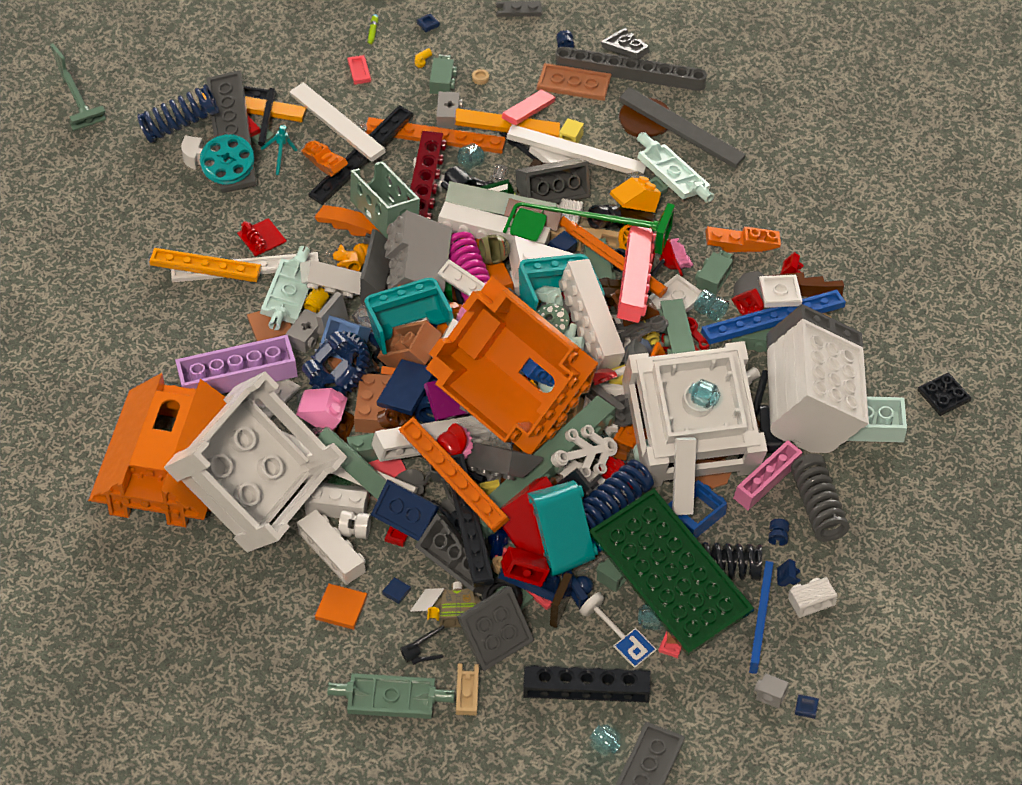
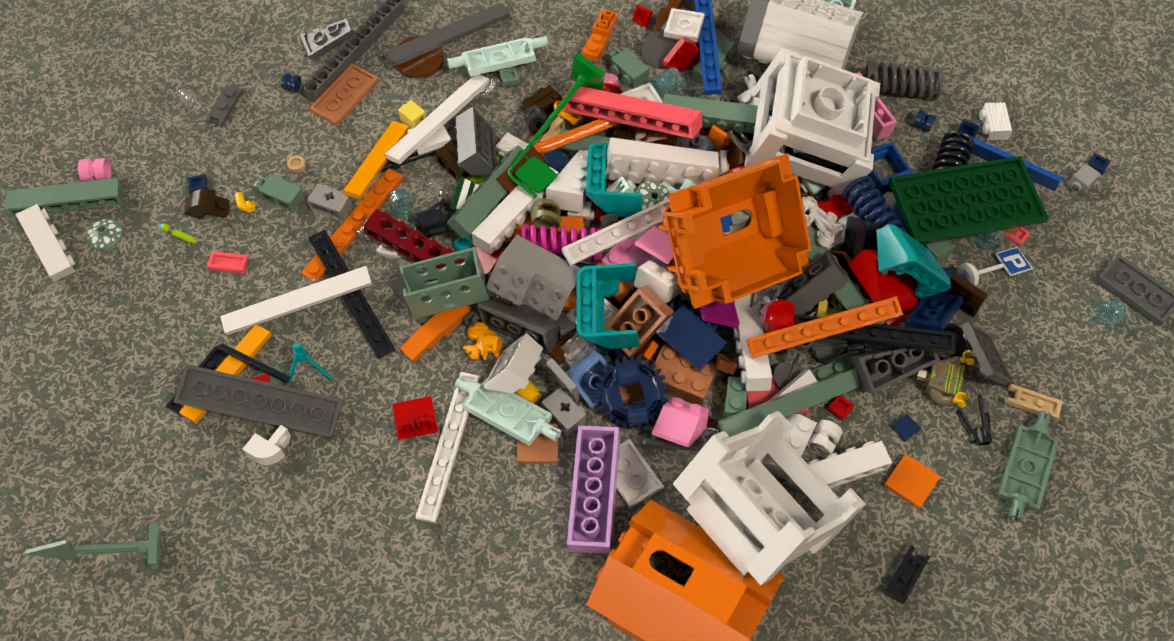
camera: 70 degrees left, 10 degrees up
(205, 265) = (433, 483): light orange tile -> none
(207, 106) = (207, 407): dark blue piece -> none
(229, 165) = (303, 425): teal wedge -> none
(241, 618) = (906, 576): none -> black hinge
(323, 158) = (344, 326): orange slope -> none
(404, 510) = (830, 388): dark blue tile -> none
(406, 32) = (205, 201): none -> dark brown brick
(427, 599) = (928, 403): white sticker -> none
(524, 566) = (937, 306): red brick -> none
(528, 107) = (365, 136): tile -> none
(595, 691) = (1053, 295): black brick -> none
(637, 194) = (521, 88): light orange slope -> none
(684, 475) = (883, 149): white tile -> none
(704, 393) = (842, 90): clear light blue head -> none

